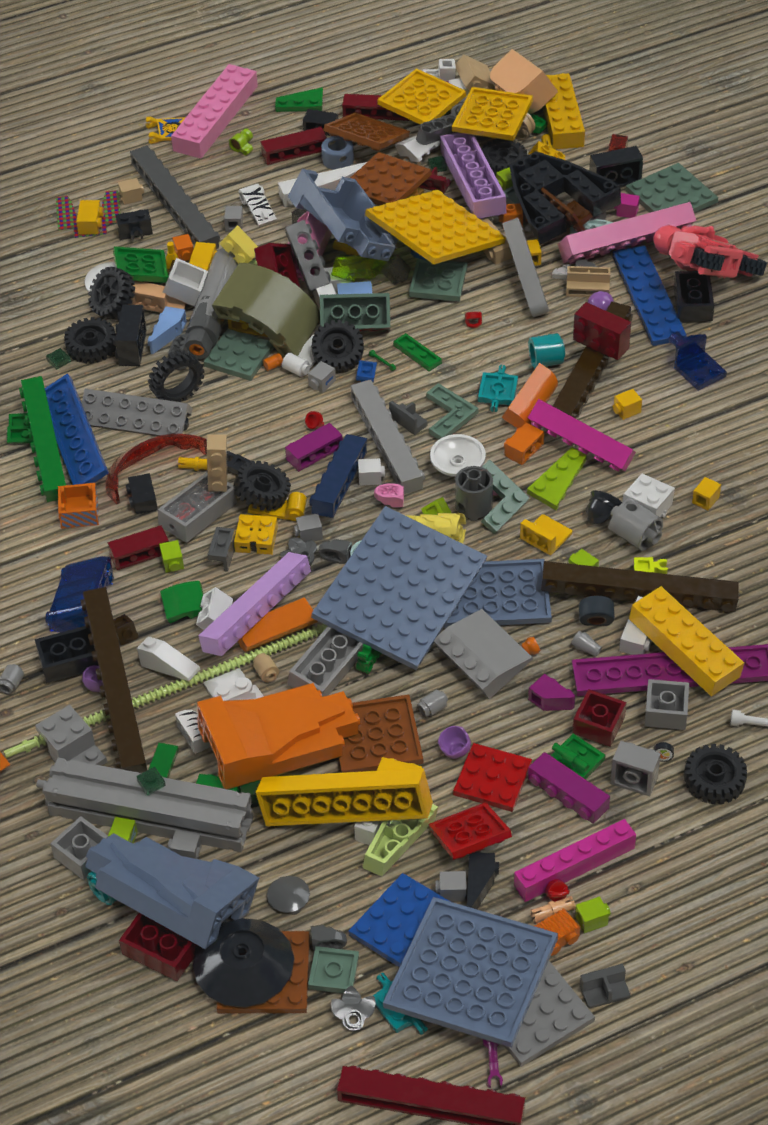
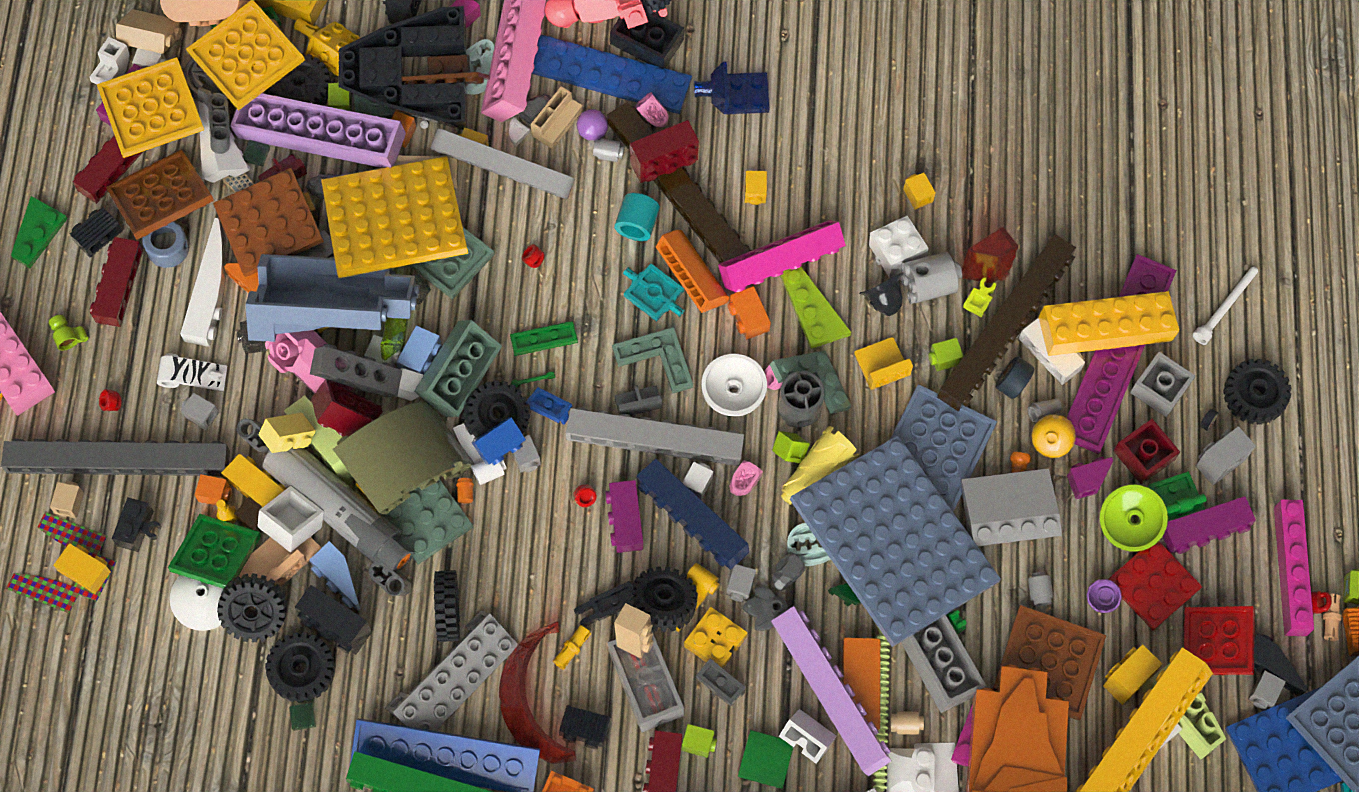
camera: 65 degrees left, 20 degrees up
(209, 178) = (110, 400): none -> red tile
(313, 349) = (499, 441): none -> blue brick
(534, 731) = (1122, 506): none -> lime dish
(564, 653) = (1053, 436): none -> yellow cylinder
(639, 324) = (653, 110): none -> bright pink rock
(679, 544) = (990, 258): none -> clear red slope

